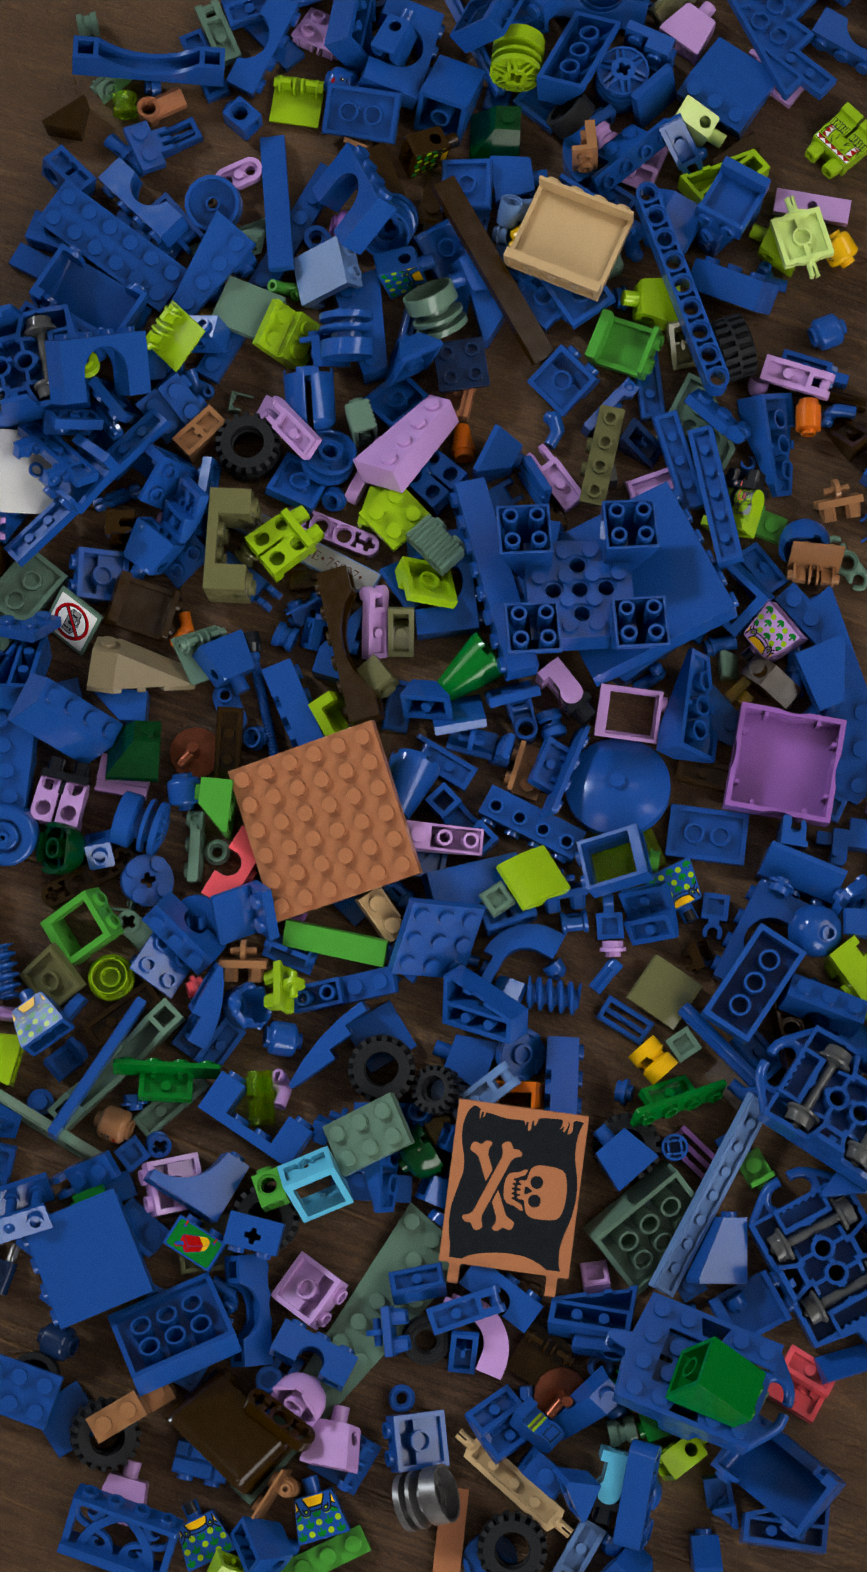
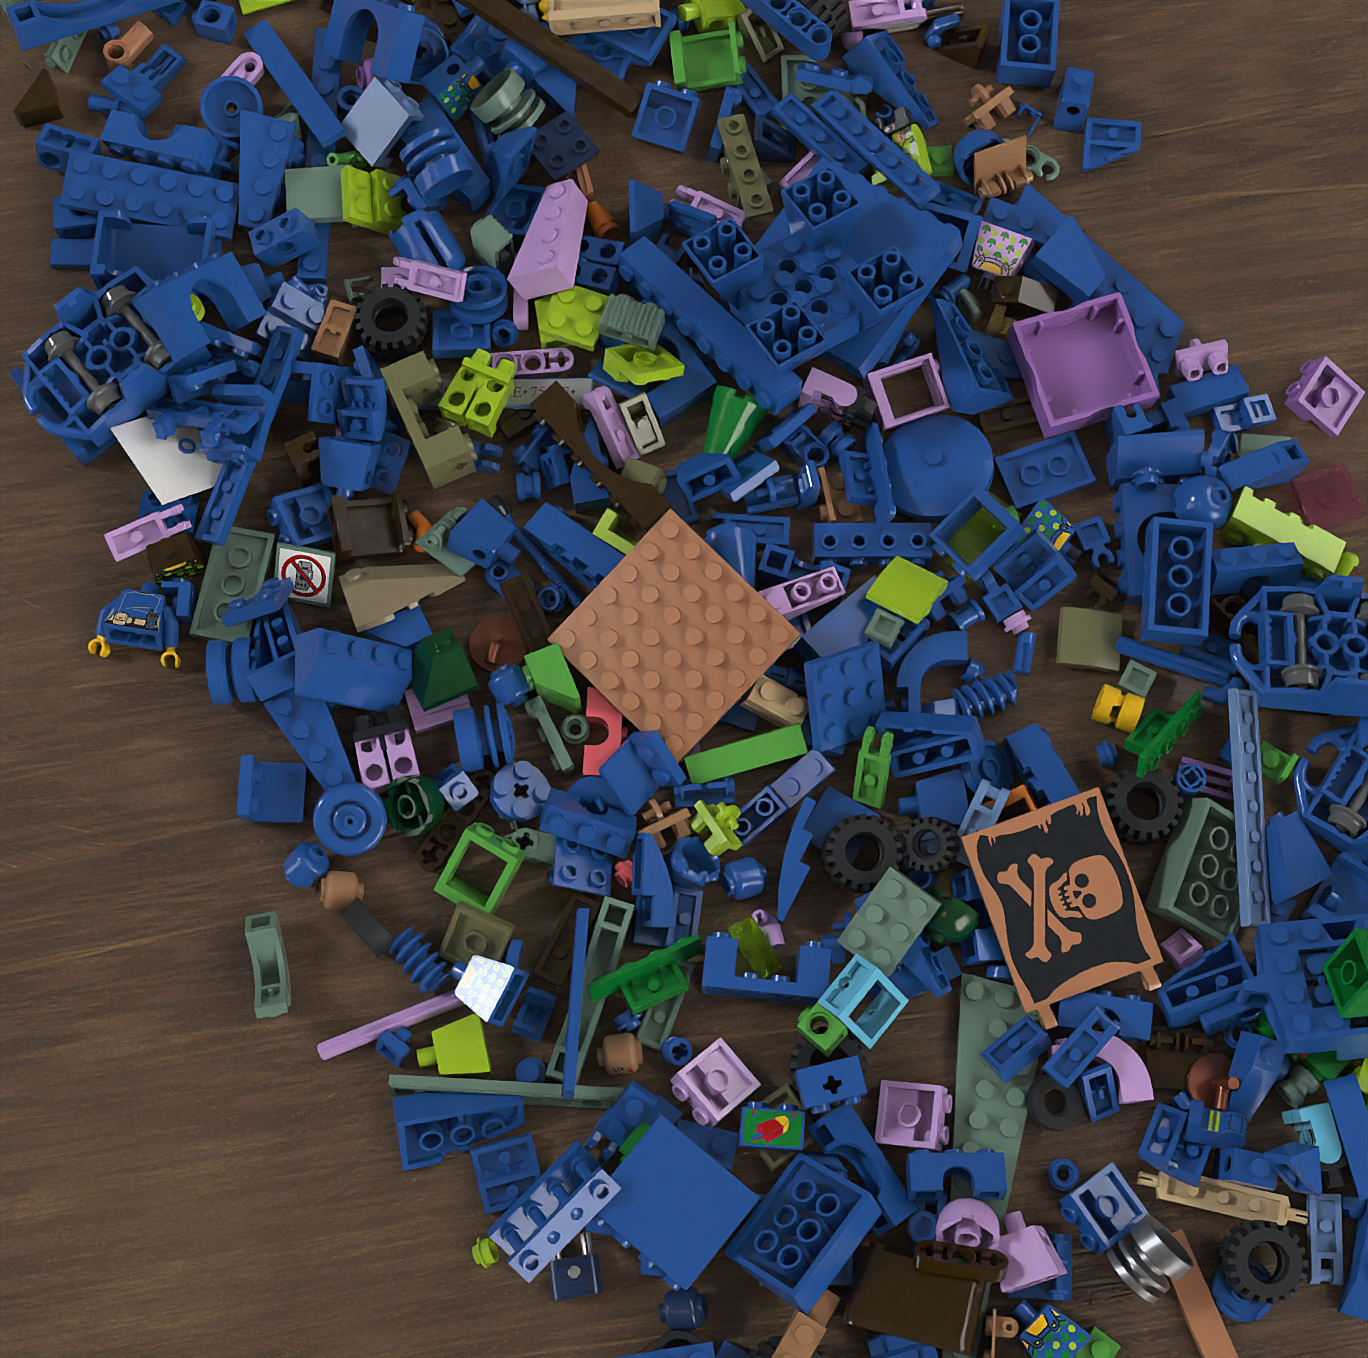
camera: 35 degrees left, 5 degrees down
(111, 977) = (535, 908): lime piece -> none
(116, 497) = (284, 435): blue axle -> none
(124, 104) = (89, 62): clear neon green wheel -> none
(133, 1154) = (655, 1074): blue plate -> none
(174, 335) = (262, 247): lime hinge -> none
(206, 1192) = (754, 1072): blue arch -> none
(390, 1318) = (1029, 1120): blue hips -> none
(427, 1007) = (873, 769): none -> bright green hinge
(556, 427) = (683, 165): blue arm -> none
(622, 1155) = (1149, 811): blue torso -> none
(644, 1032) = (1066, 698): blue tile -> none
(808, 417) = (916, 43): orange brick -> none

